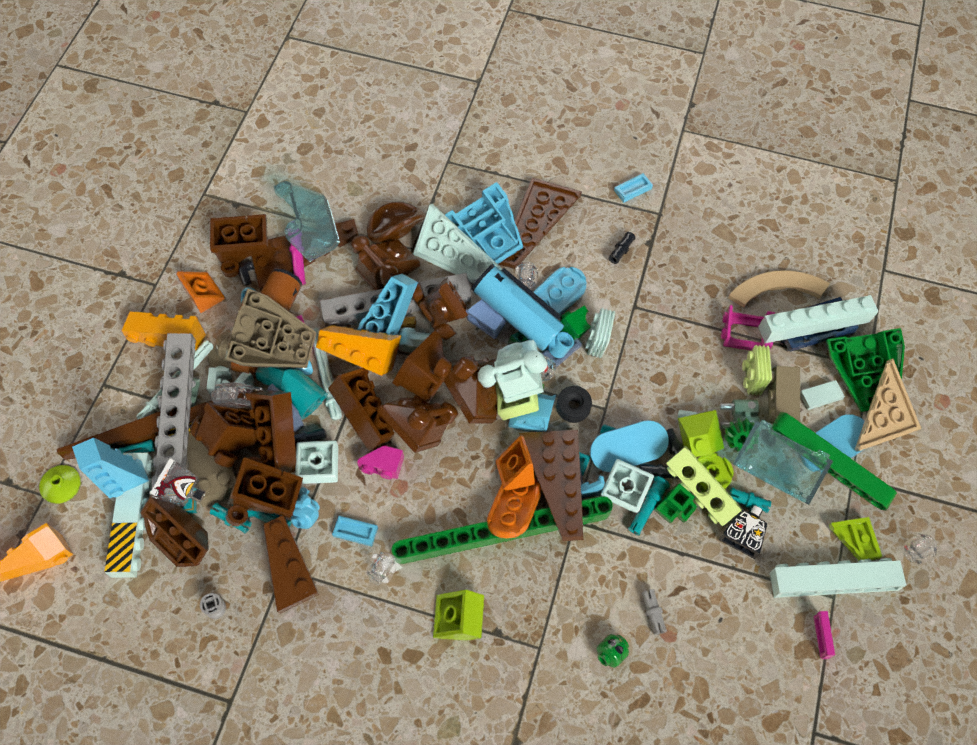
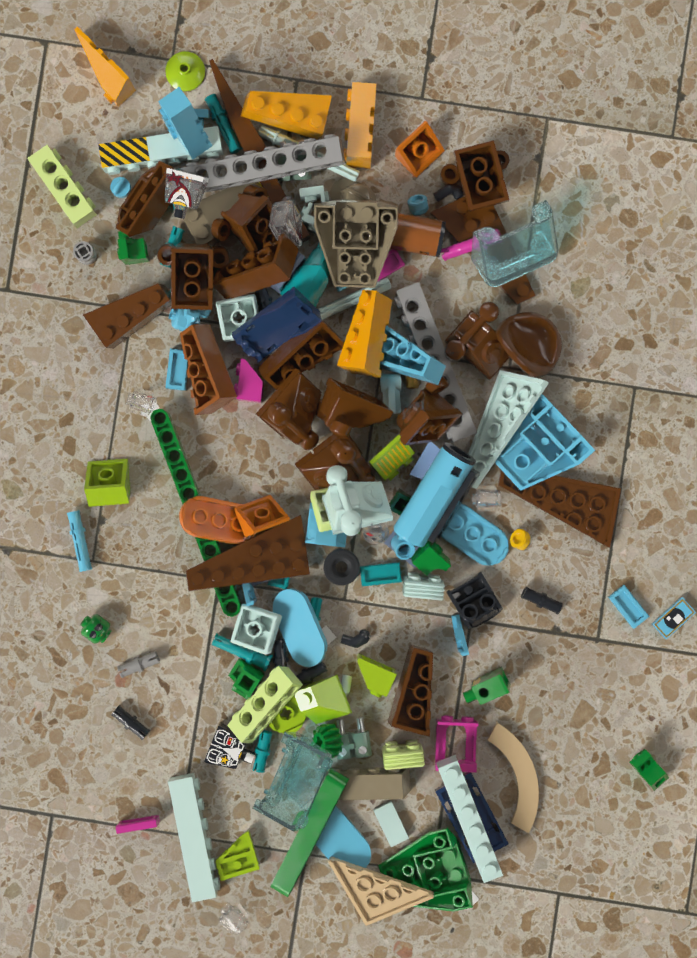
camera: 80 degrees right, 25 degrees up
(101, 629) = (42, 161): none -> yellowish green brick
(130, 387) = (289, 111): none -> light orange wedge
(155, 561) = (120, 187): none -> medium azure tile
(222, 556) = (132, 250): none -> green brick
(329, 416) = (276, 324): none -> dark blue piece
(362, 497) = (206, 369): none -> dark orange wedge
(475, 342) = (391, 458): none -> lime slope
(516, 656) = (80, 545): none -> medium azure pin
(566, 256) = (520, 539): none -> yellow tile
(584, 372) = (380, 574): none -> teal tile
(617, 295) = (475, 601): none -> black slope
(646, 157) = (673, 618): none -> tile
(646, 400) = (357, 641): none -> black arm
(651, 312) = (459, 635): none -> medium azure tile
(681, 383) = (376, 675): none -> lime slope
(697, 293) = (495, 683): none -> green torso
(697, 355) = (414, 693): none -> reddish brown wedge
(715, 629) = (130, 722): none -> black pin
(774, 187) = (649, 769): none -> green brick

